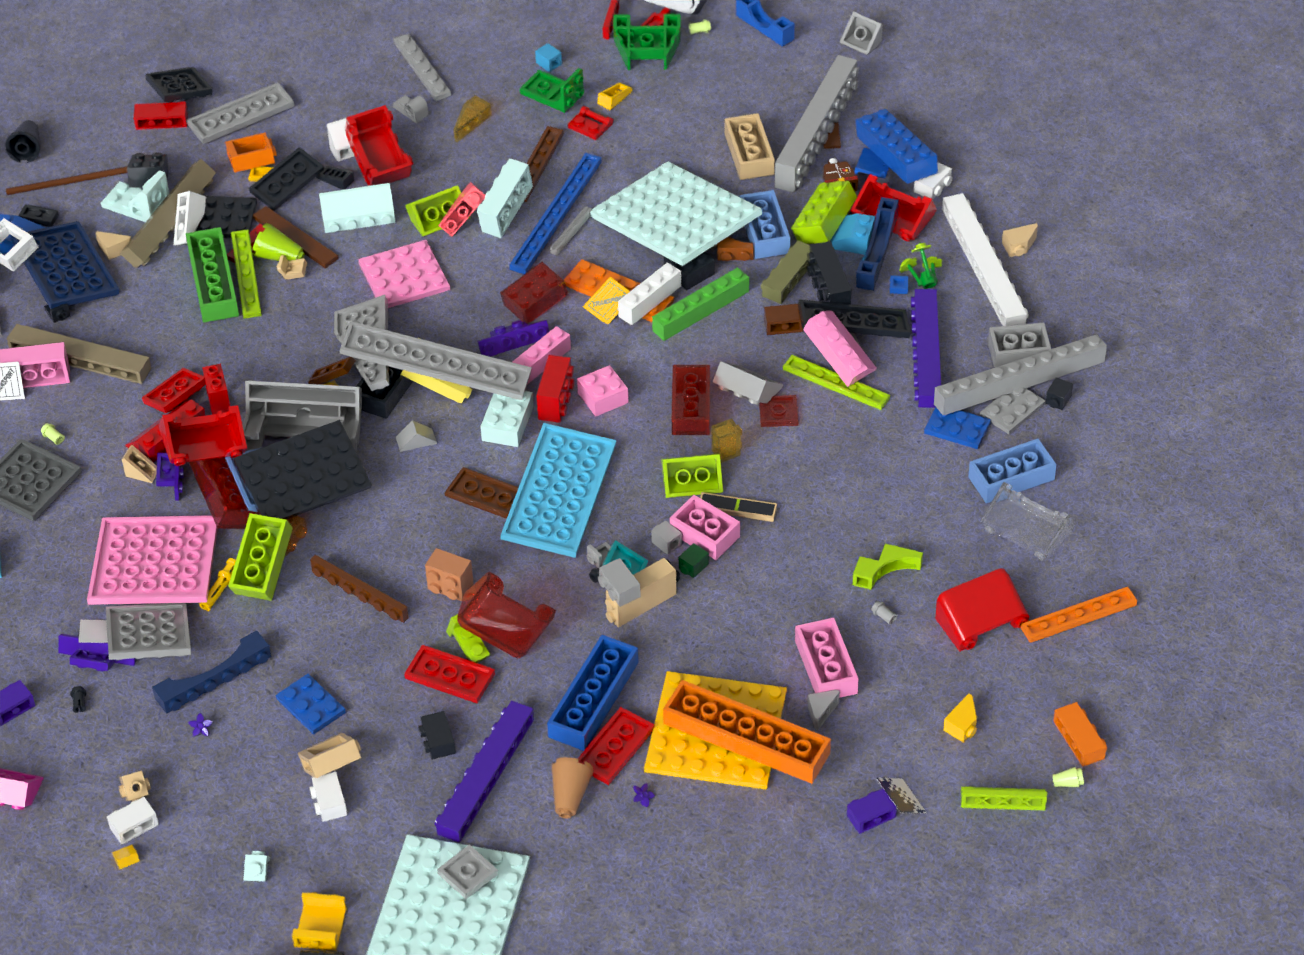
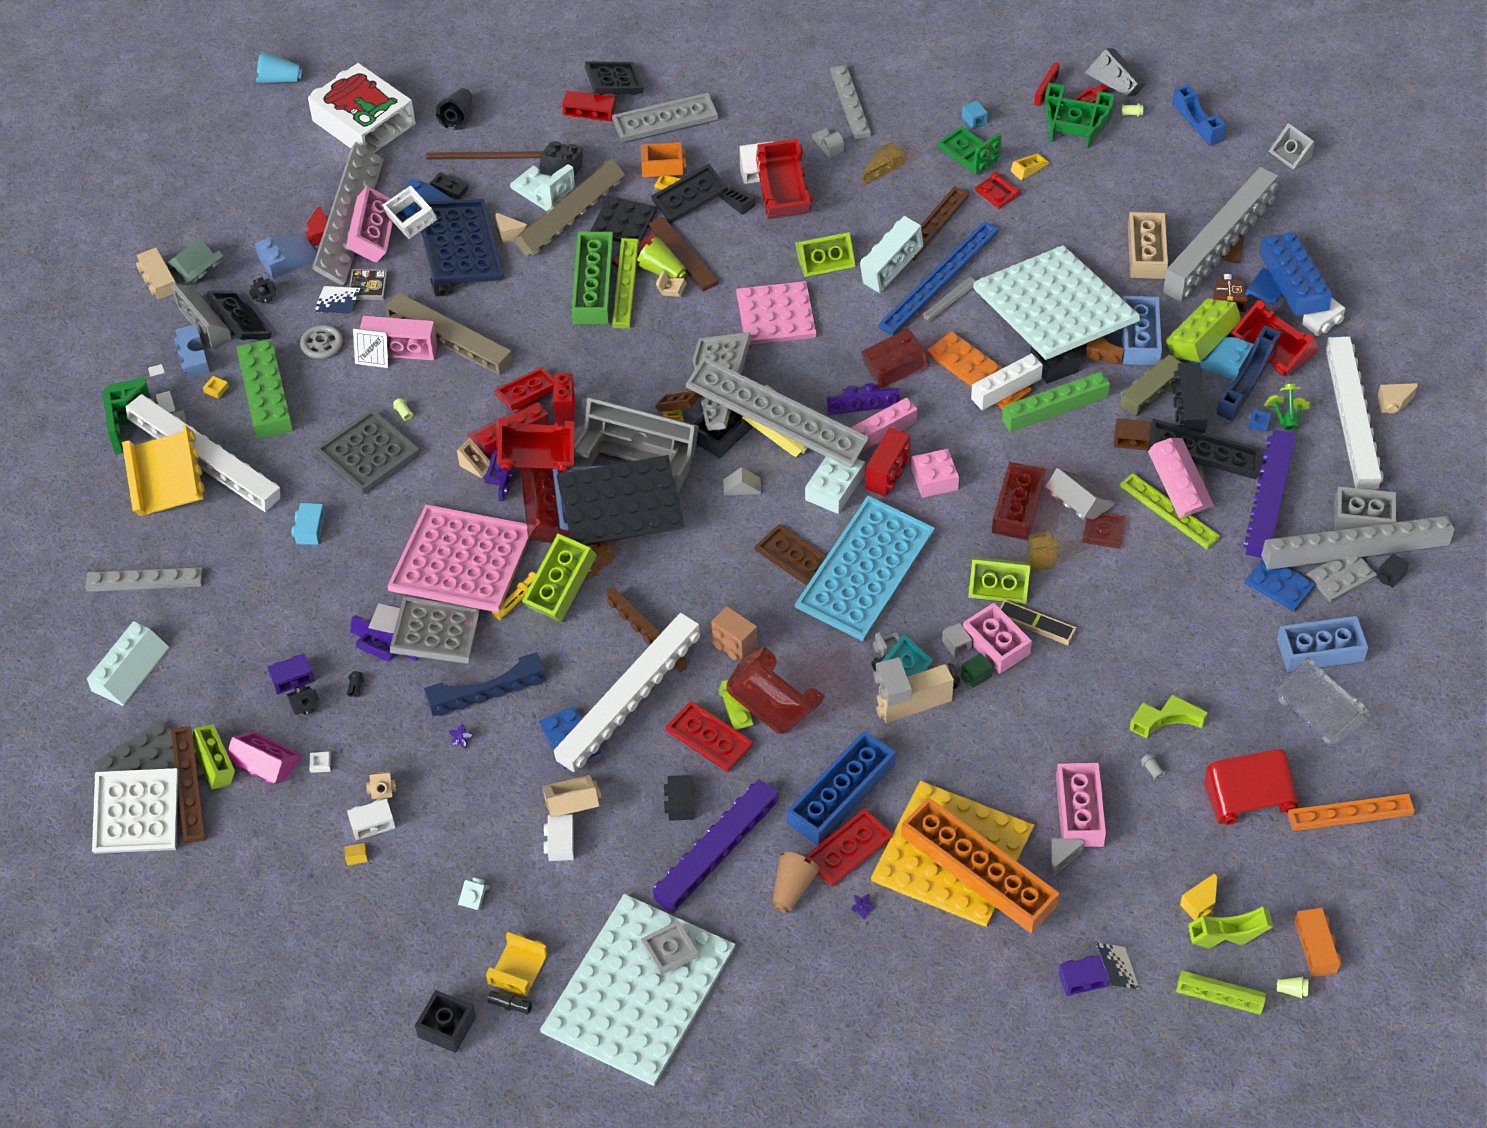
camera: 15 degrees right, 5 degrees up
(25, 728) = (295, 699): none -> black brick
(63, 779) = (320, 762): none -> white tile
(188, 215) = (587, 212): white slope -> none
(357, 208) = (747, 236): light aqua slope -> none
(358, 649) = (627, 693): none -> white brick
(462, 209) = (848, 257): coral slope -> none
(605, 301) = (960, 380): yellow sticker -> none
(1005, 738) = (1237, 929): none -> lime arch

